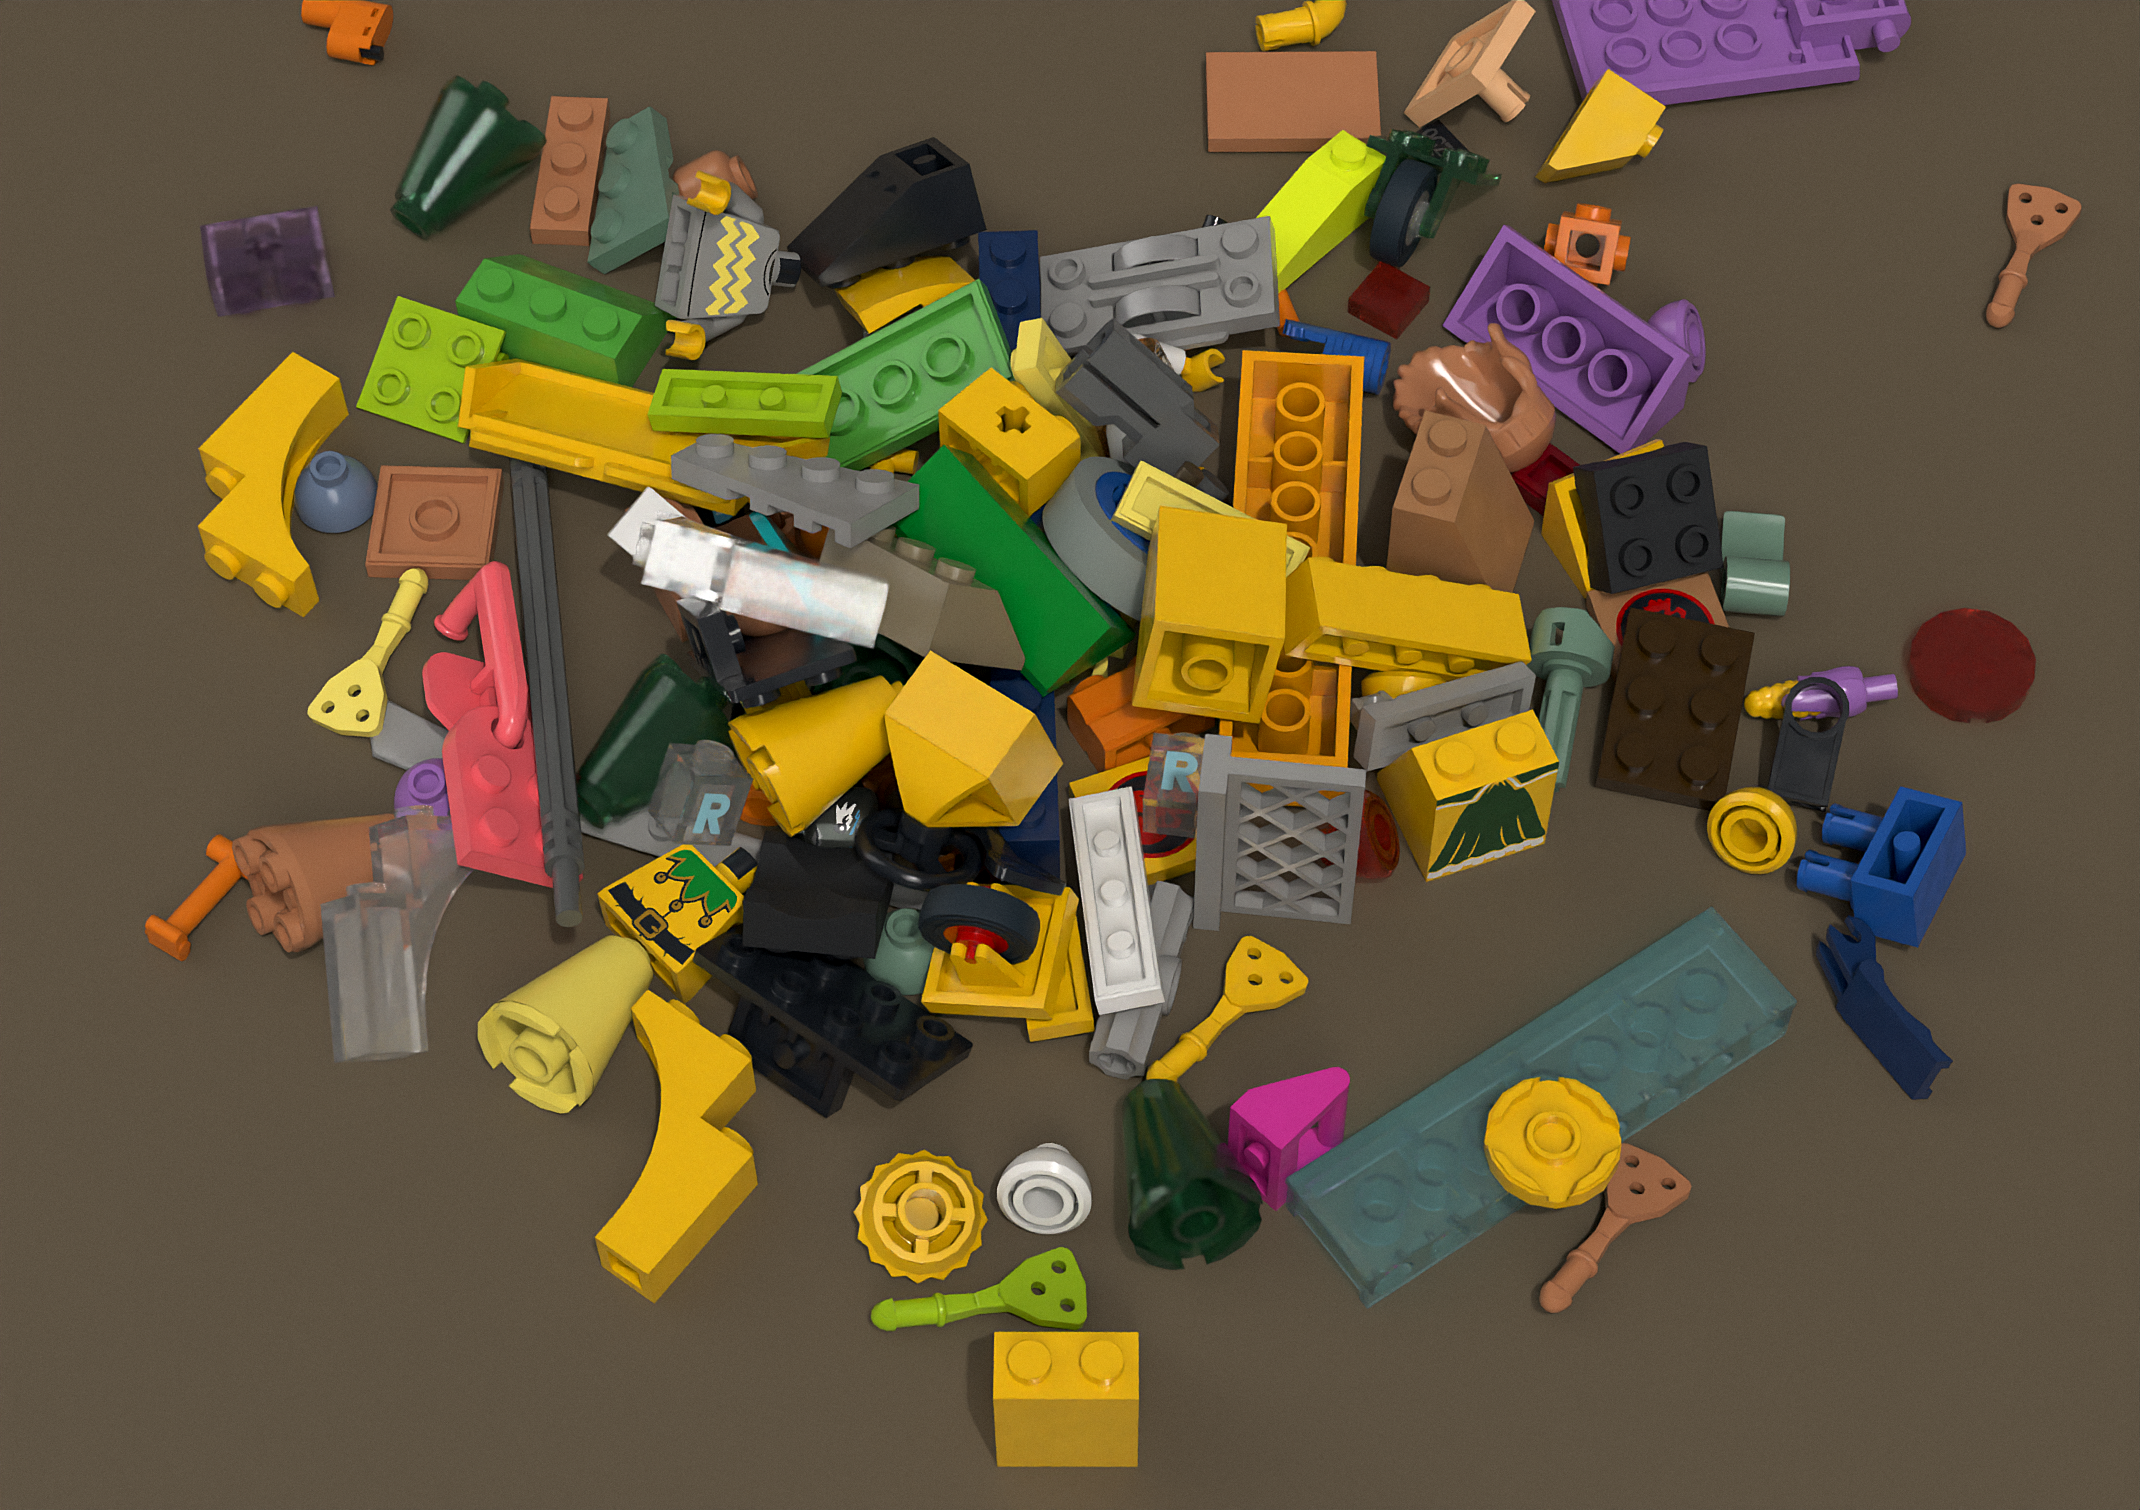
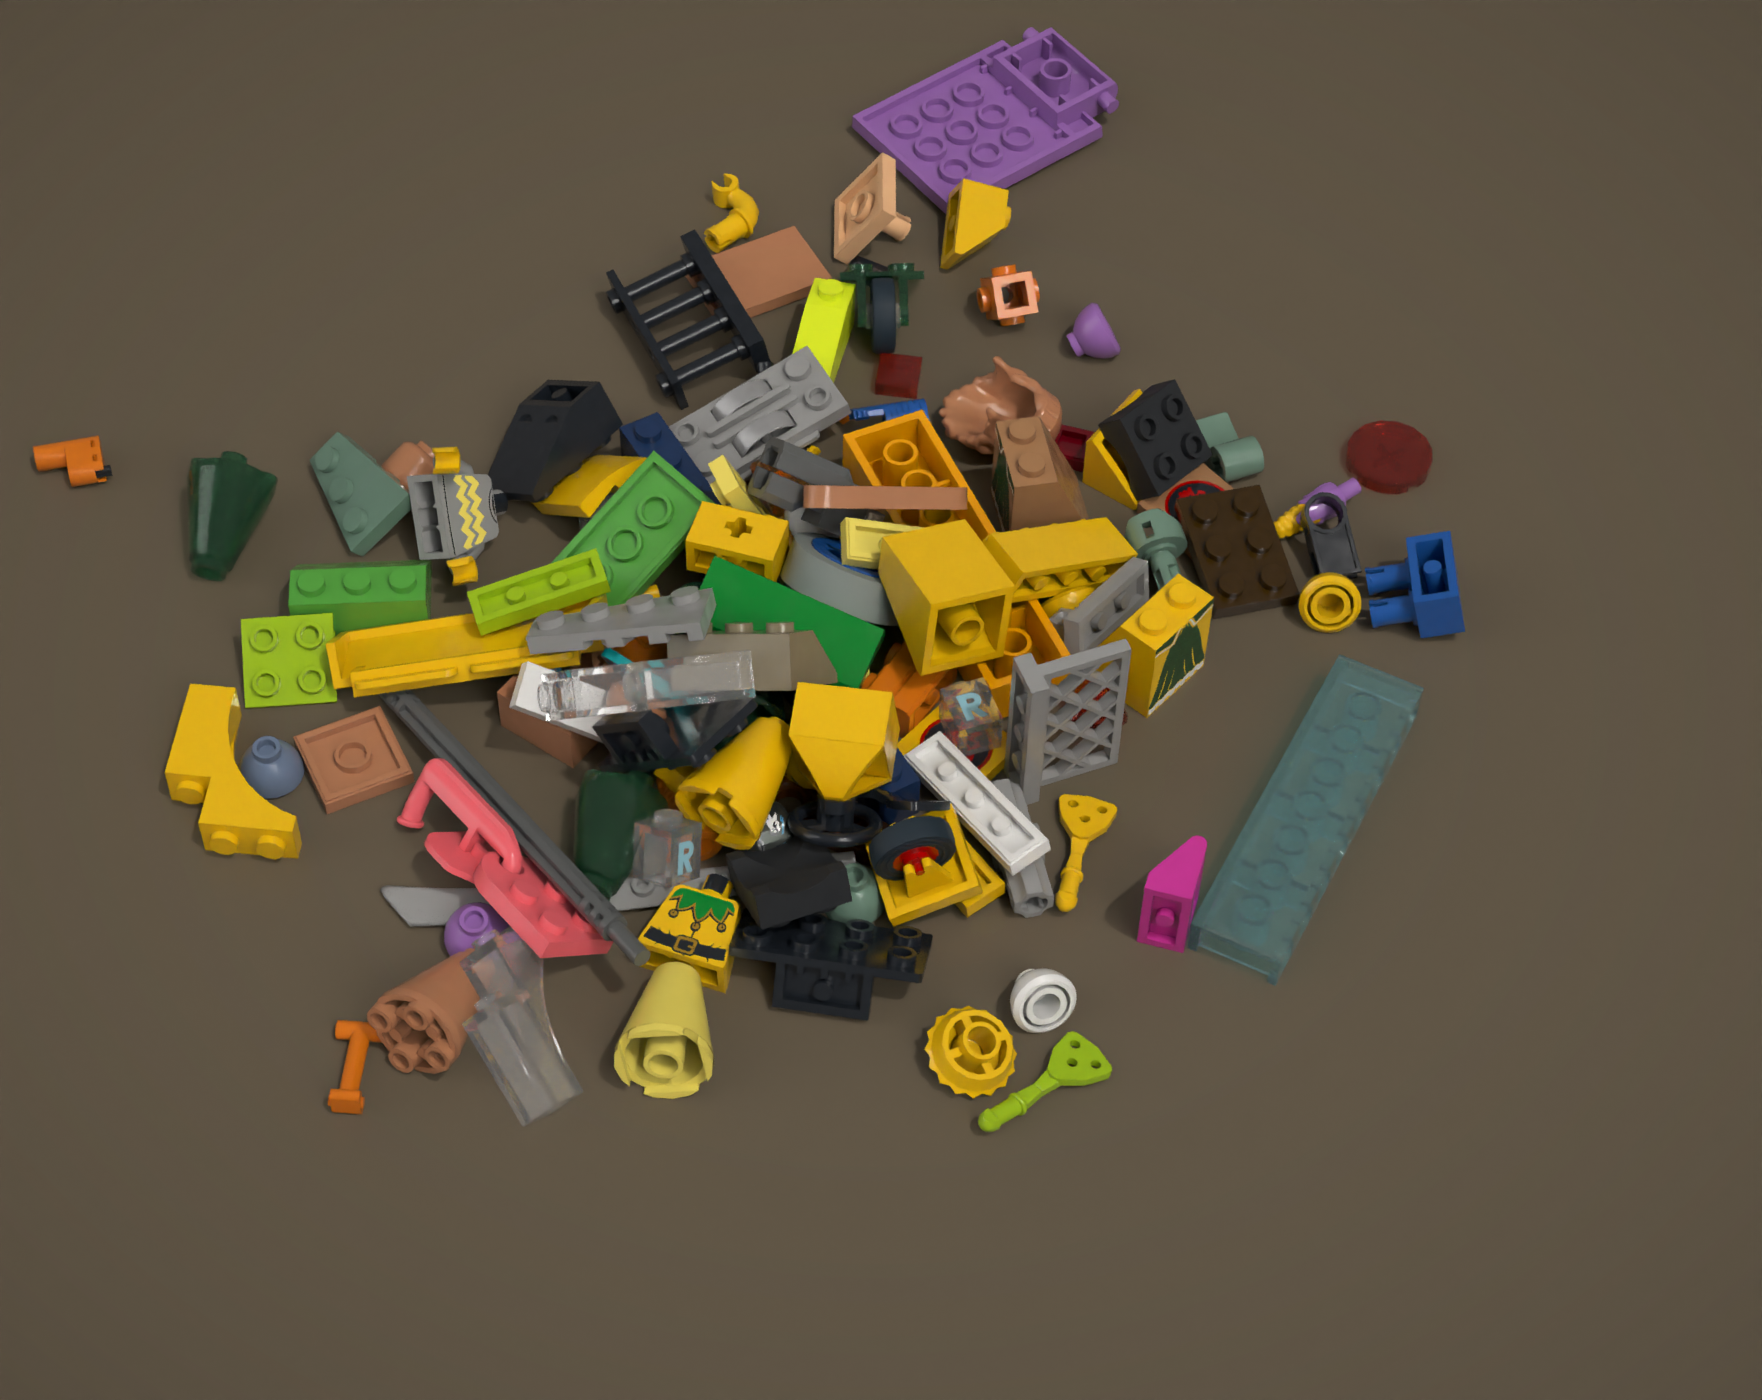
camera: 30 degrees left, 5 degrees down
(267, 261) = (123, 635): clear purple brick -> none
(367, 672) = (371, 873): light yellow piece -> none
(570, 171) = (299, 498): nougat plate -> none
(696, 1163) = (805, 1082): yellow arch -> none
(1066, 1398) = (1142, 1111): yellow slope -> none
(1182, 1180) = (1124, 952): clear green cone -> none
(1209, 141) = (711, 288): none -> black fence
(1220, 454) = (884, 497): none -> nougat beam
(1552, 1142) = (1338, 830): yellow tile -> none
(1583, 345) = (1064, 356): medium lavender slope -> none
(1621, 1211) = (1378, 837): nougat piece -> none
(1875, 1014) = (1466, 678): dark blue arm -> none
(2029, 241) = (1263, 195): nougat piece -> none

